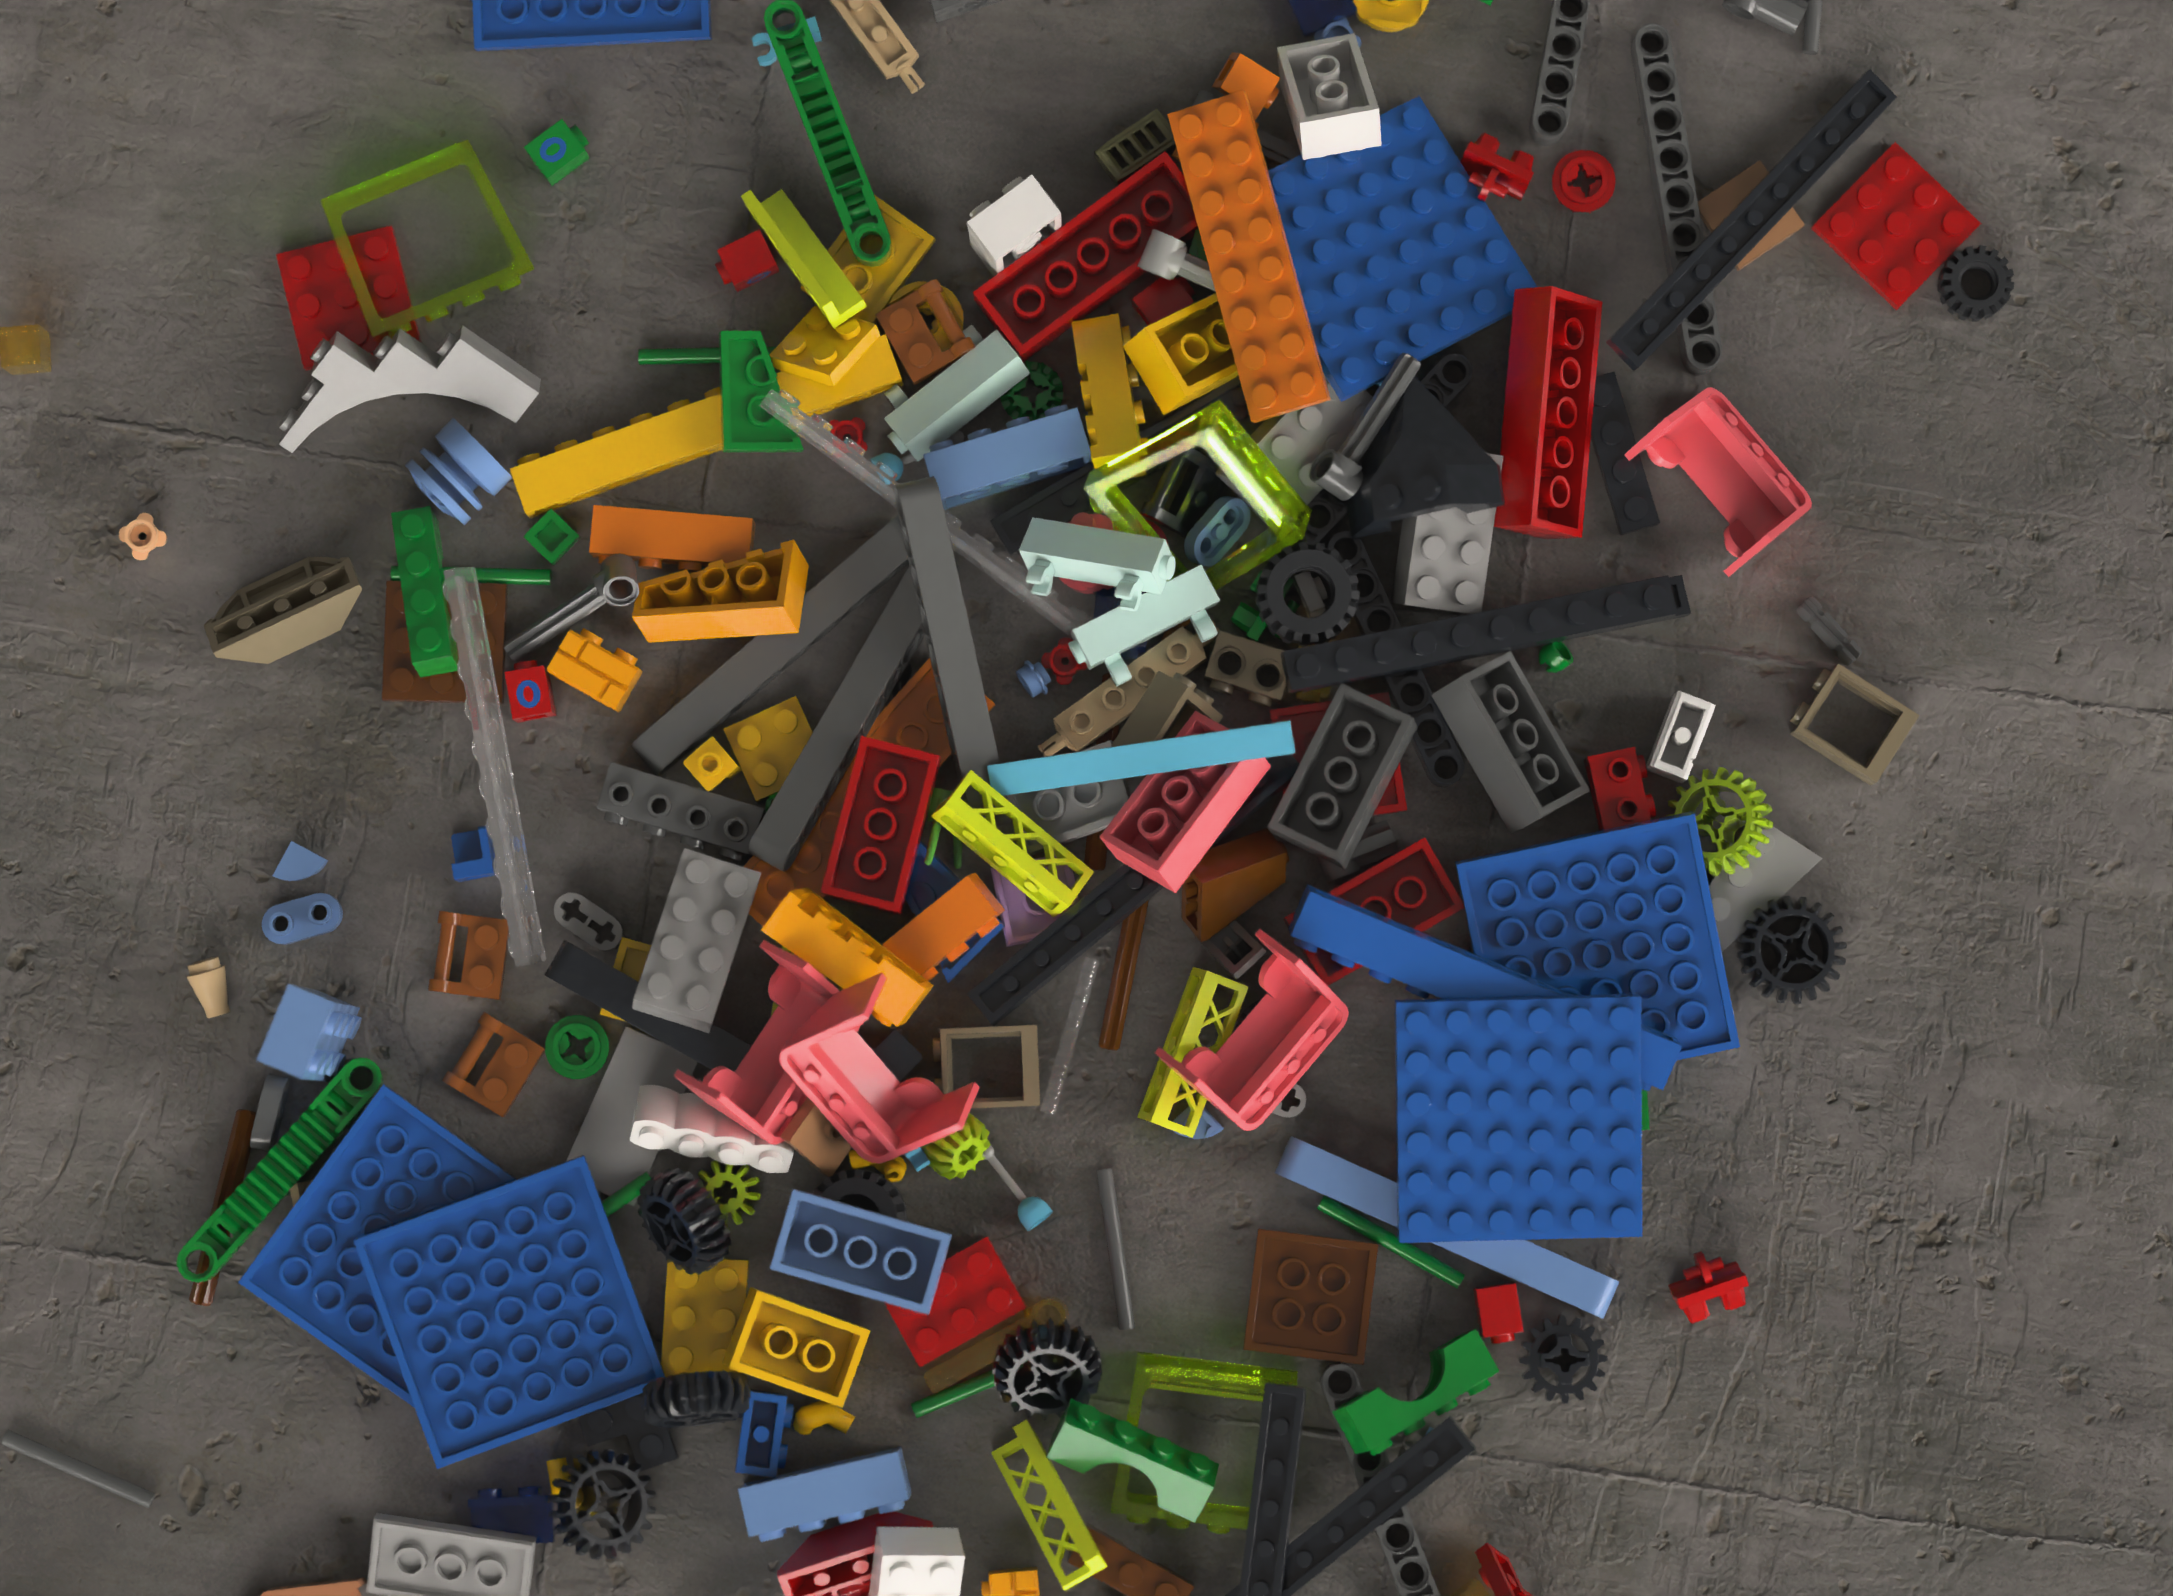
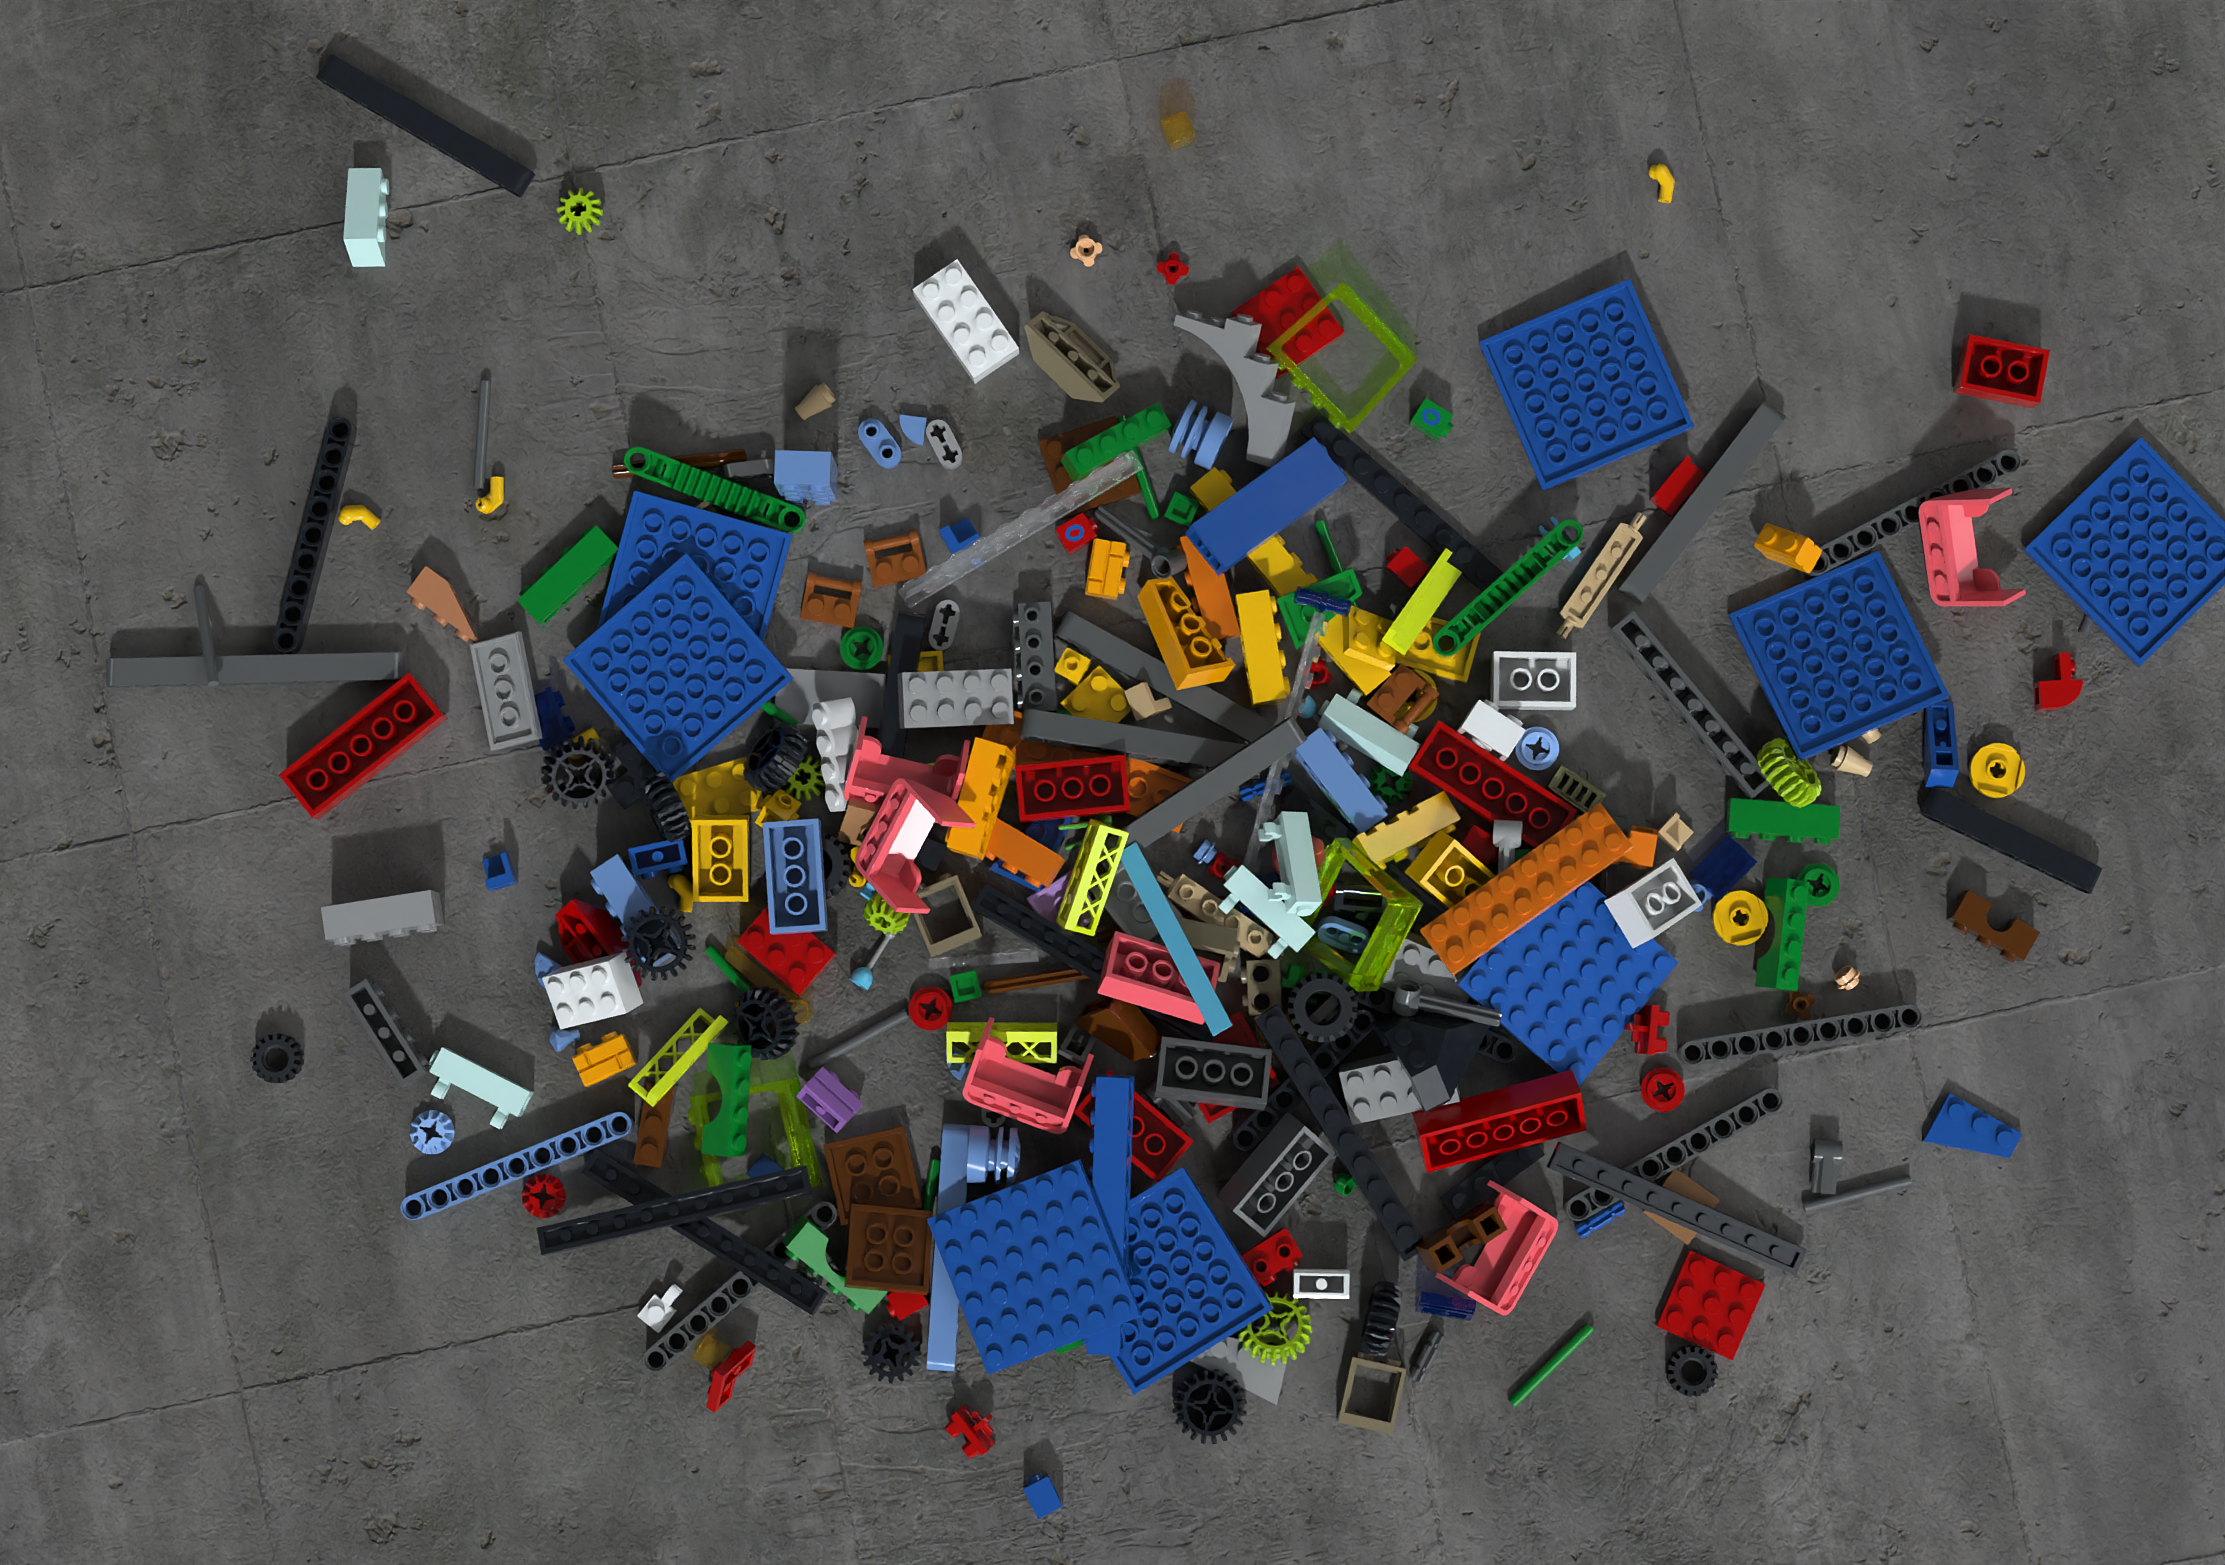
camera: 65 degrees right, 0 degrees up
(174, 1483) = (493, 498): none -> yellow arm
(177, 737) = (966, 321): none -> white brick
(224, 430) = (1172, 276): none -> red plate
(322, 1418) = (568, 576): none -> green brick
(337, 820) = (938, 447): none -> light grey beam
(591, 417) = (1266, 506): none -> blue brick
(654, 235) = (1403, 503): none -> black plate
(751, 387) = (1322, 601): none -> clear blue pin
(757, 1242) = (778, 808): none -> yellow brick
(784, 498) = (1260, 648): none -> yellow brick
(798, 686) = (1143, 703): none -> tan panel
(859, 1500) = (663, 931): none -> black gear
(965, 145) = (1533, 680): none -> white brick
(973, 589) = (1248, 792): none -> blue axle
(1057, 159) = (1548, 743): none -> light blue gear
(1090, 1134) = (927, 995): none -> red gear
(1097, 1074) = (965, 986): none -> green plate
(1185, 1317) = (830, 1099): none -> medium lavender brick
(1242, 35) = (1674, 832): none -> tan panel
(1244, 1442) = (763, 1166): none -> dark blue tile
(1344, 1120) = (992, 1155): none -> medium blue wheel
(1421, 1310) = (888, 1249): none -> reddish brown plate
(1678, 497) = (1474, 1227): none -> reddish brown arch
(1730, 337) = (1599, 1219): none -> blue axle
(1757, 672) = (1381, 1318): none -> black gear
(1771, 579) = (1445, 1306): none -> clear blue plate
(1831, 1222) = (1042, 1495): none -> blue brick
(1900, 468) = (1551, 1365): none -> green bar

